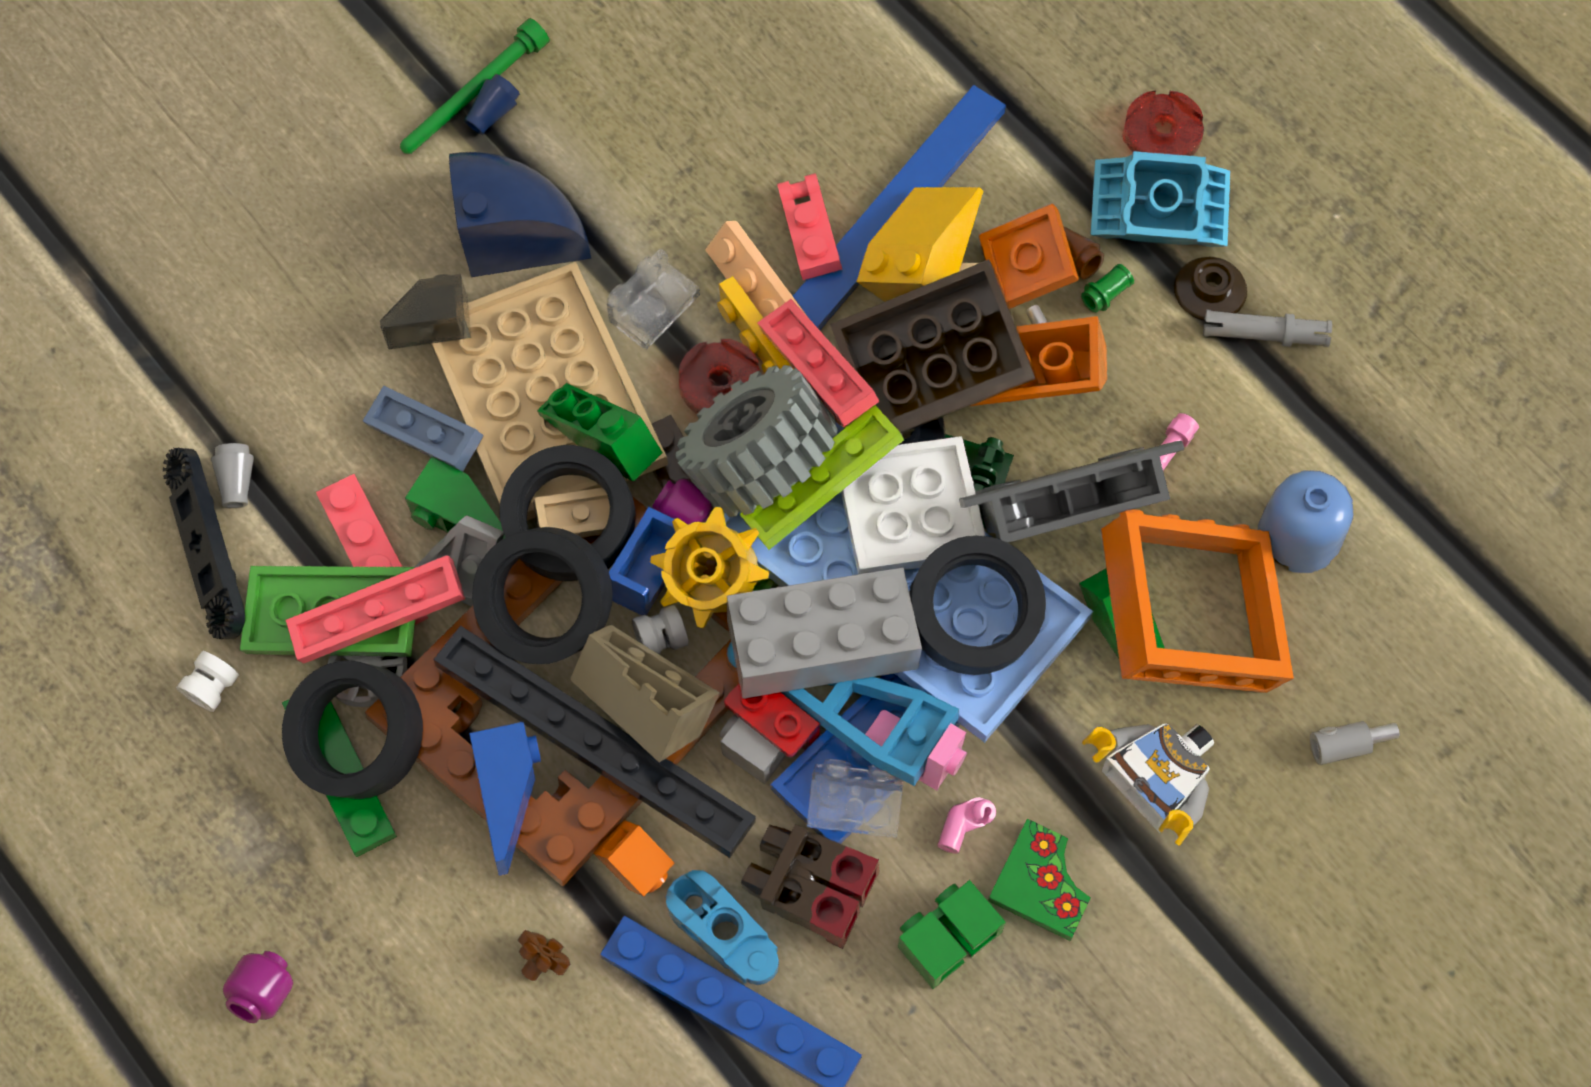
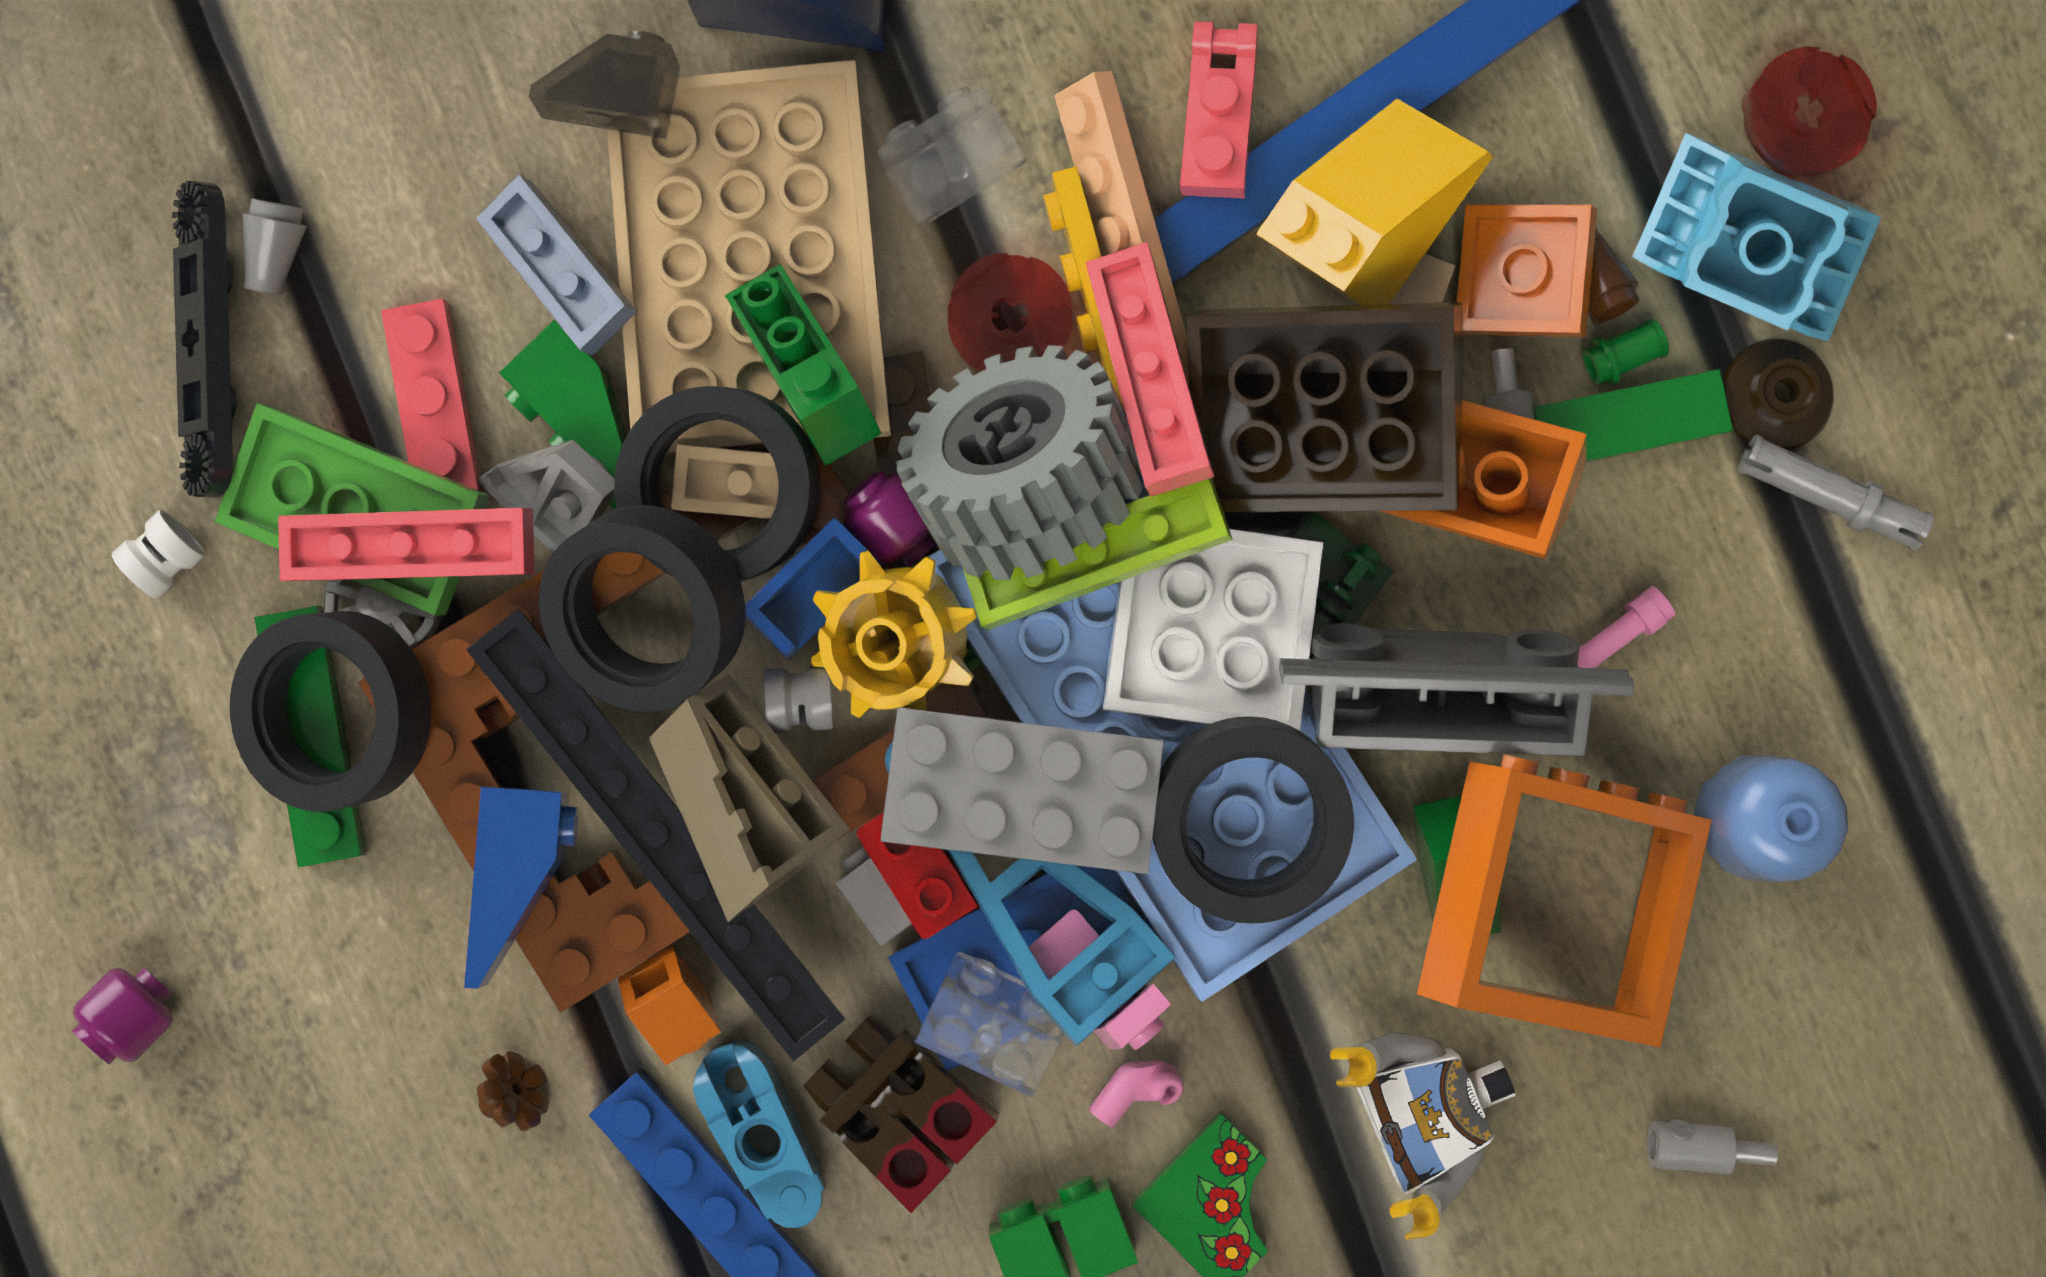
camera: 20 degrees right, 20 degrees up
(1142, 319) = (1645, 415): none -> green tile

